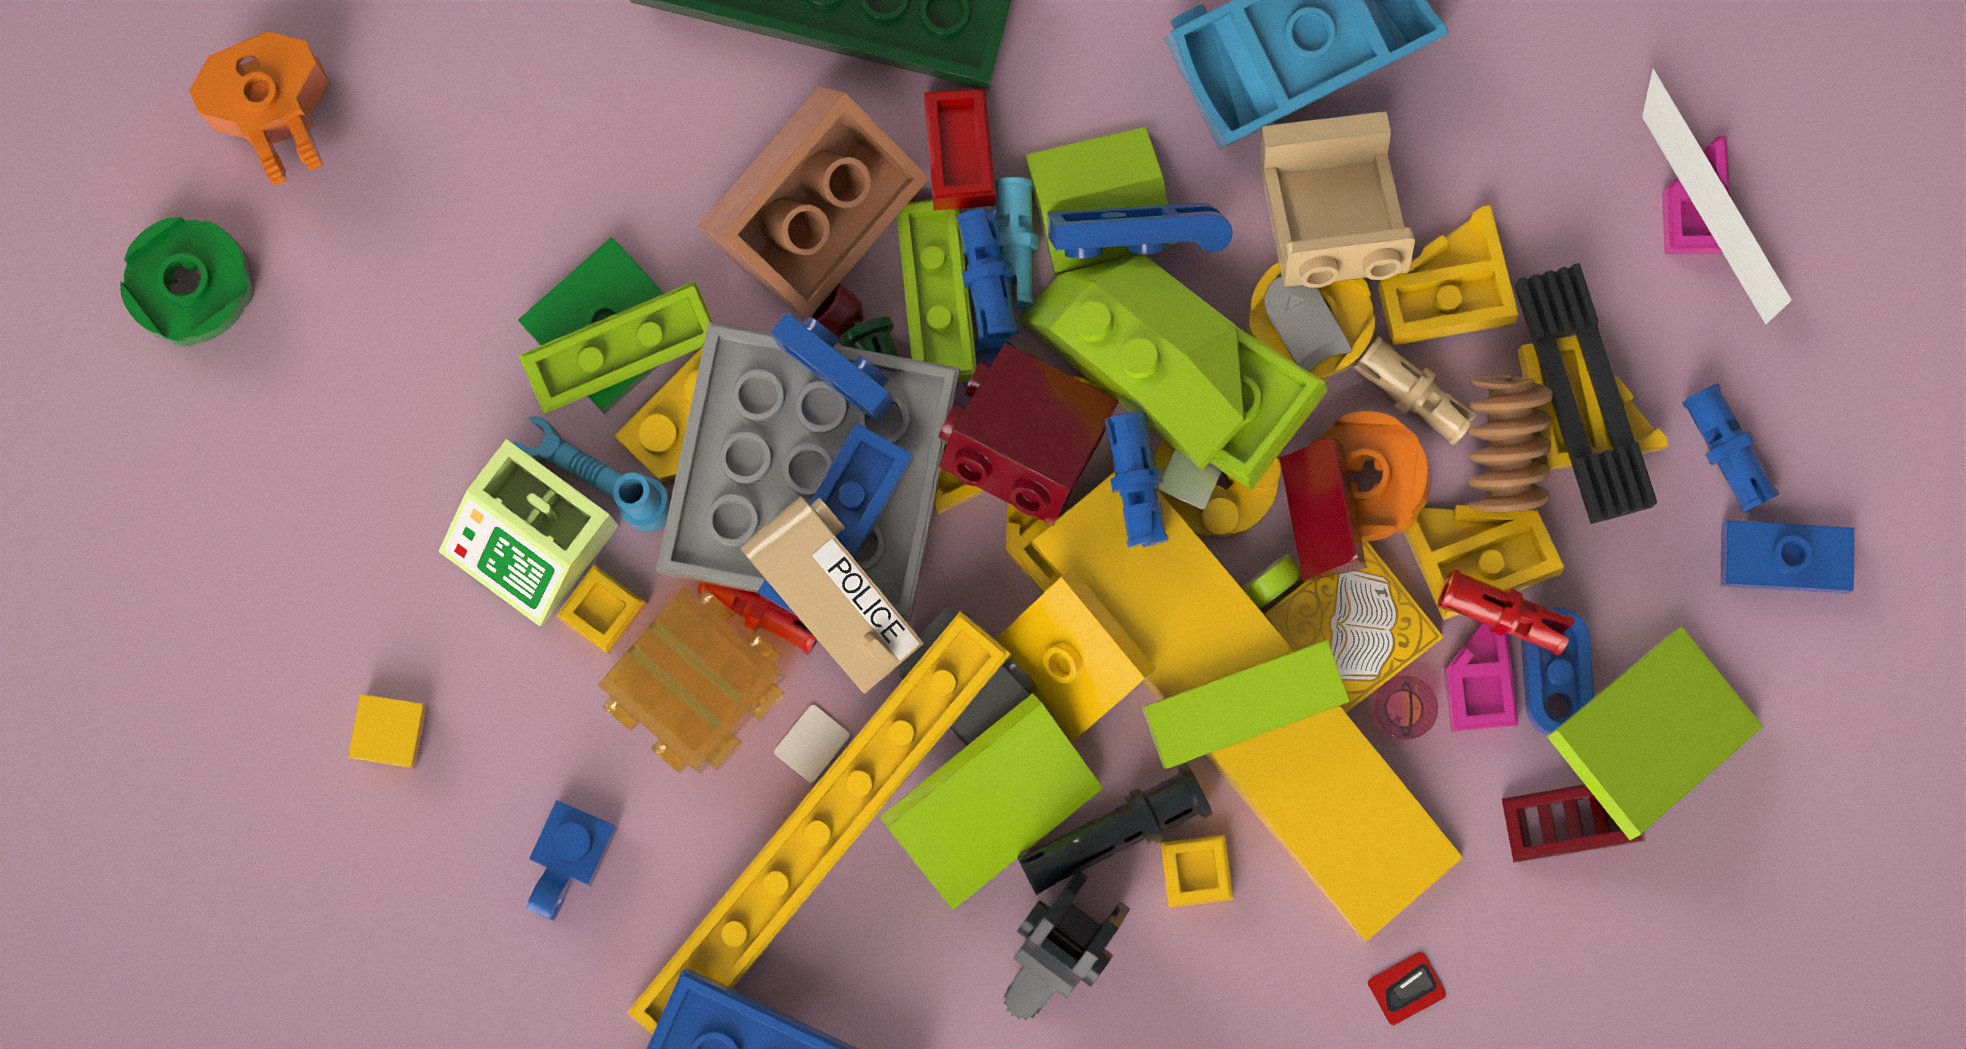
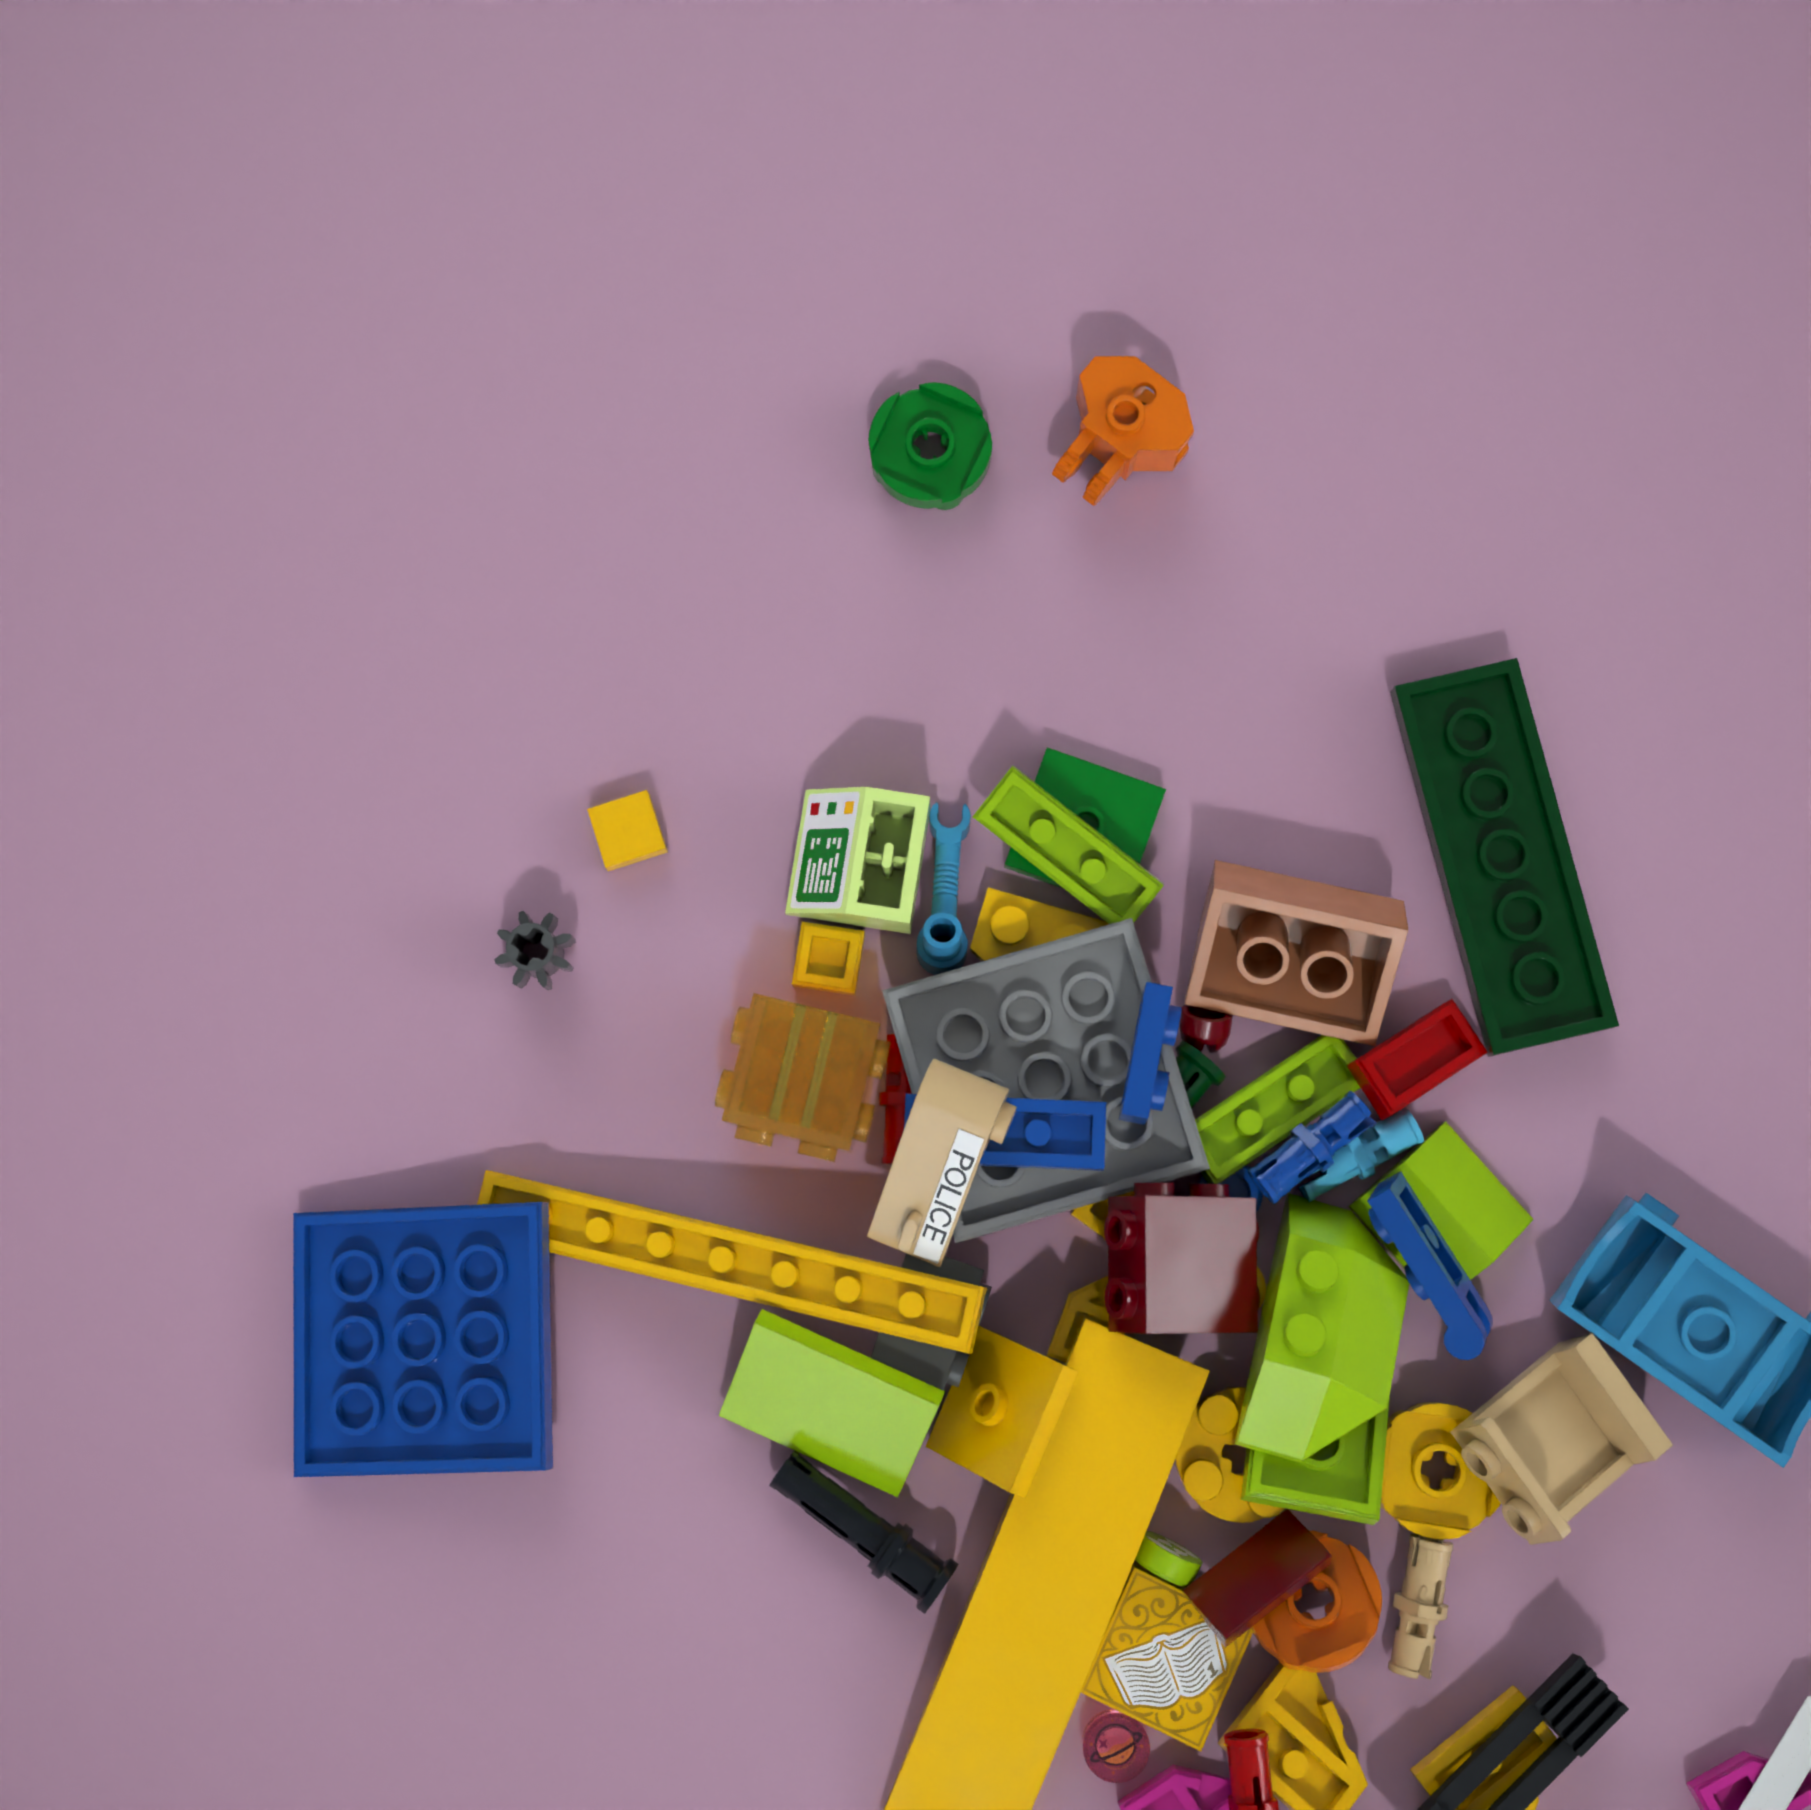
camera: 70 degrees right, 0 degrees up
(434, 865) = (534, 933): none -> dark grey gear
(570, 849) = (603, 1045): blue plate -> none
(812, 743) = (805, 1208): white sticker -> none
(1060, 950) = (730, 1537): black hinge -> none
(1136, 479) = (1191, 1388): blue pin -> none
(1188, 481) = (1217, 1434): white sticker -> none
(1196, 871) = (865, 1623): yellow tile -> none
(1245, 704) = (1037, 1598): lime tile -> none
(1304, 323) = (1425, 1468): light grey piece -> none
(1452, 286) = (1540, 1592): yellow wing -> none
(1511, 444) = (1417, 1731): medium nougat piece -> none

